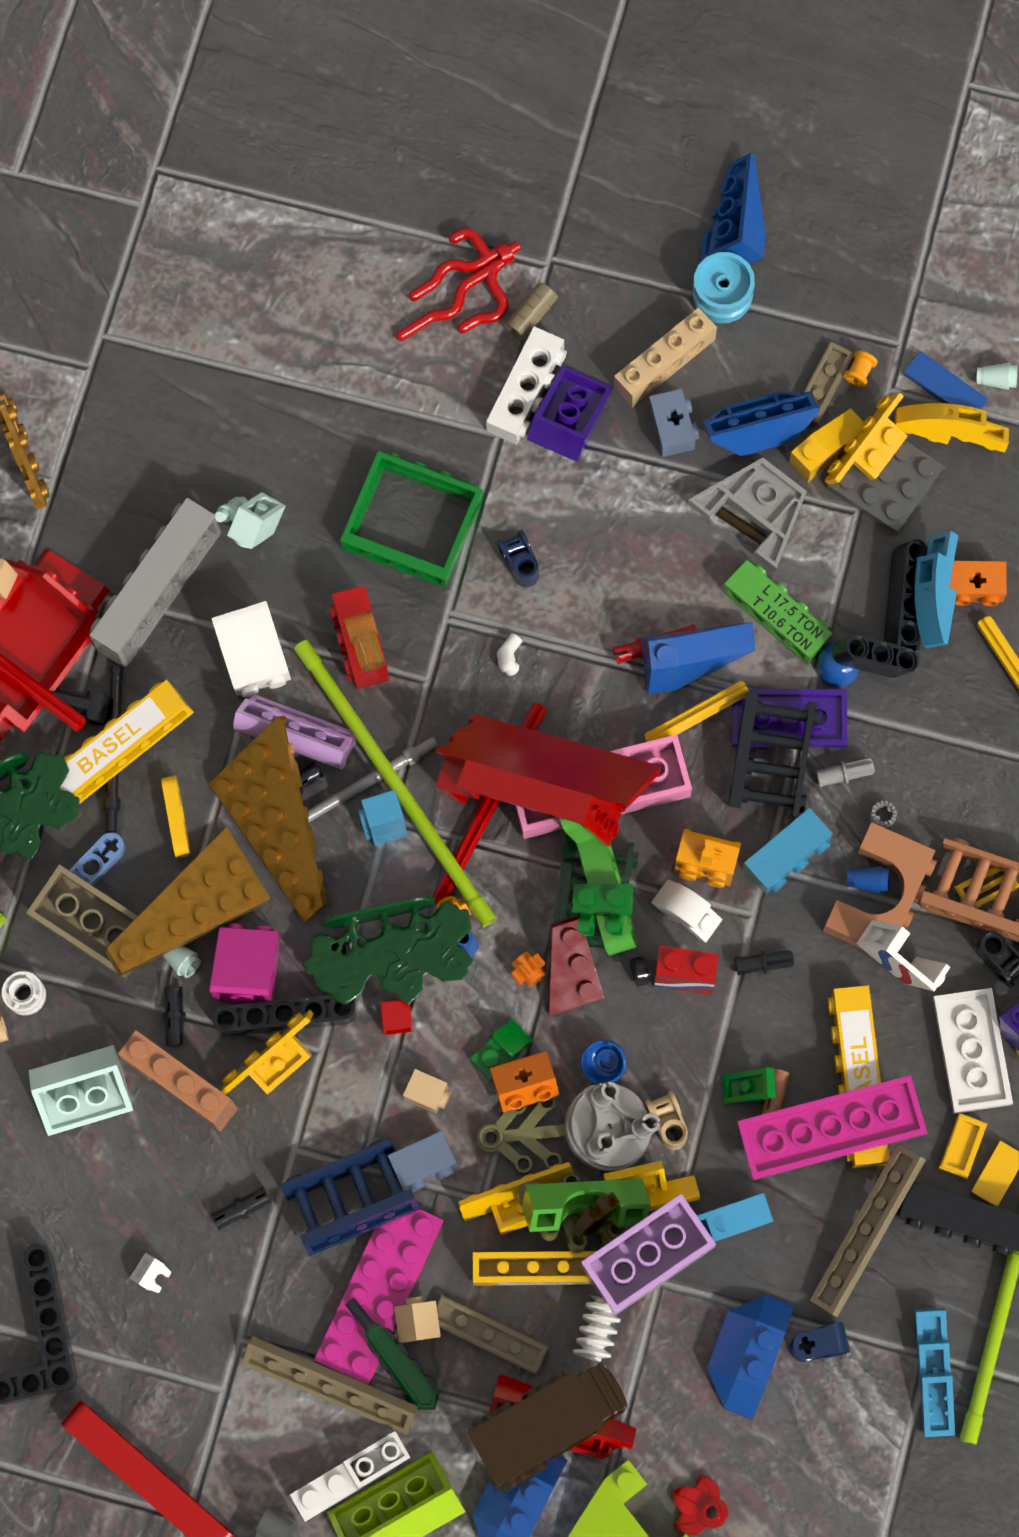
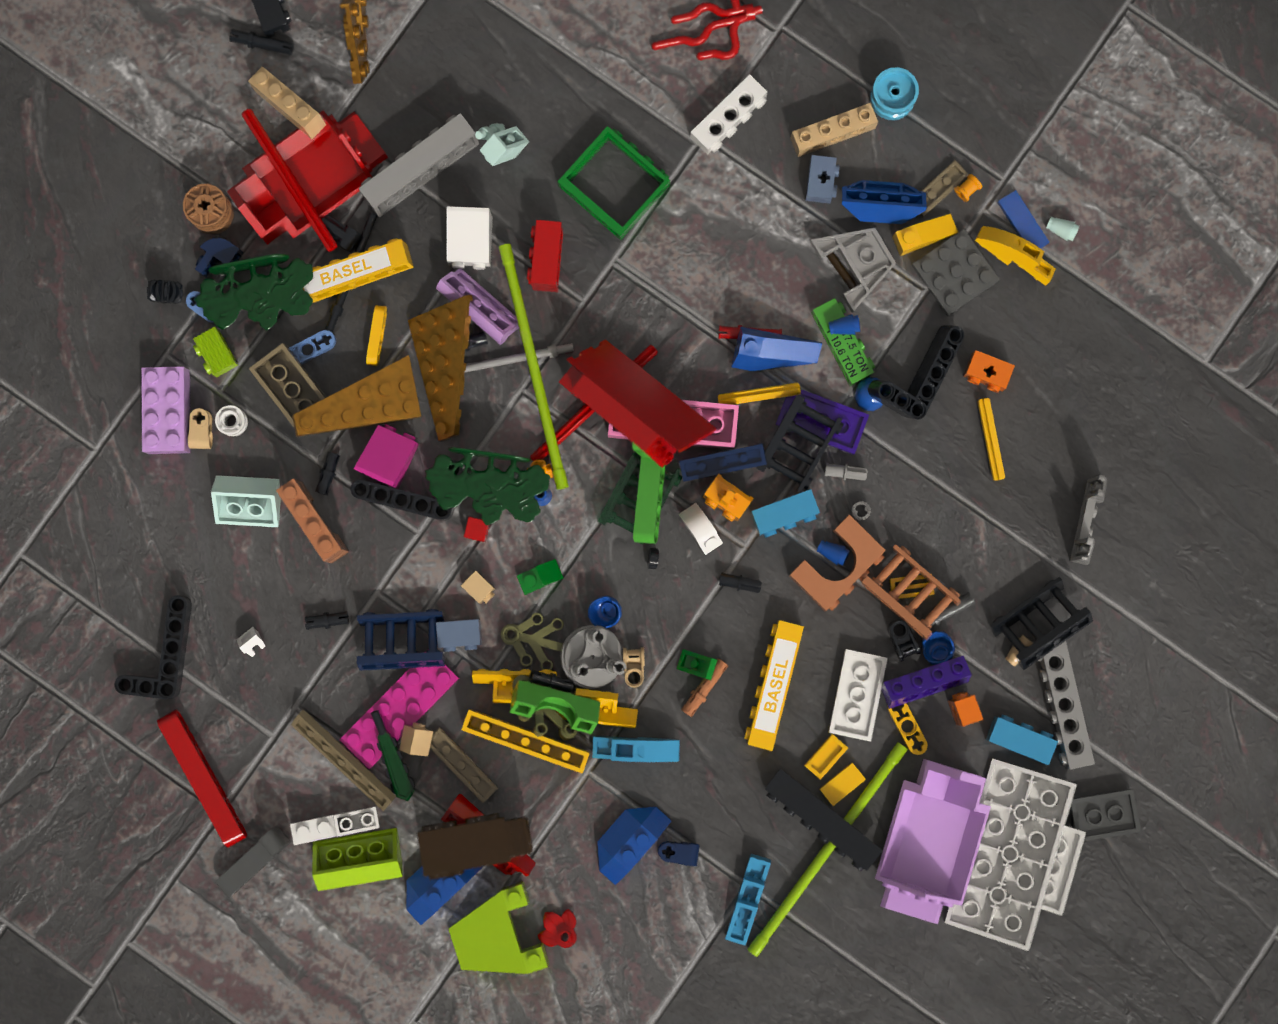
camera: 20 degrees right, 10 degrees up
(183, 961) = (347, 438): light aqua cone -> none
(276, 1061) = (384, 530): yellow bracket -> none
(363, 635) = (546, 262): clear yellow piece -> none
(382, 818) = (515, 390): dark azure brick -> none
(506, 657) = (643, 304): white arm -> none
(519, 554) = (678, 235): dark blue piece -> none
(524, 1081) = (546, 606): orange brick -> none
(528, 969) = (577, 529): orange gear -> none
(531, 311) = (752, 61): dark tan axle -> none
(566, 1174) = (550, 680): none -> black pin
(569, 413) = (752, 145): dark purple slope -> none
(572, 969) = (606, 543): dark red wing -> none
(593, 1218) = (557, 717): dark brown plate -> none
(596, 1331) = (535, 789): white piece -> none
(602, 900) = (643, 504): green plate -> none
(648, 1254) = (583, 757): lavender brick -> none
(684, 814) = (723, 462): none -> dark blue fence
(686, 970) = (683, 571): red panel -> none
(739, 217) = (925, 45): blue wedge -> none
(773, 587) = (846, 325): none -> blue cone
(832, 1127) = (741, 715): dark pink plate -> none
(867, 1230) = (739, 790): dark tan plate -> none
(873, 445) = (955, 247): yellow bracket -> none
(884, 941) = (827, 603): white panel -> none
(932, 593) = (954, 369): dark azure slope -> none

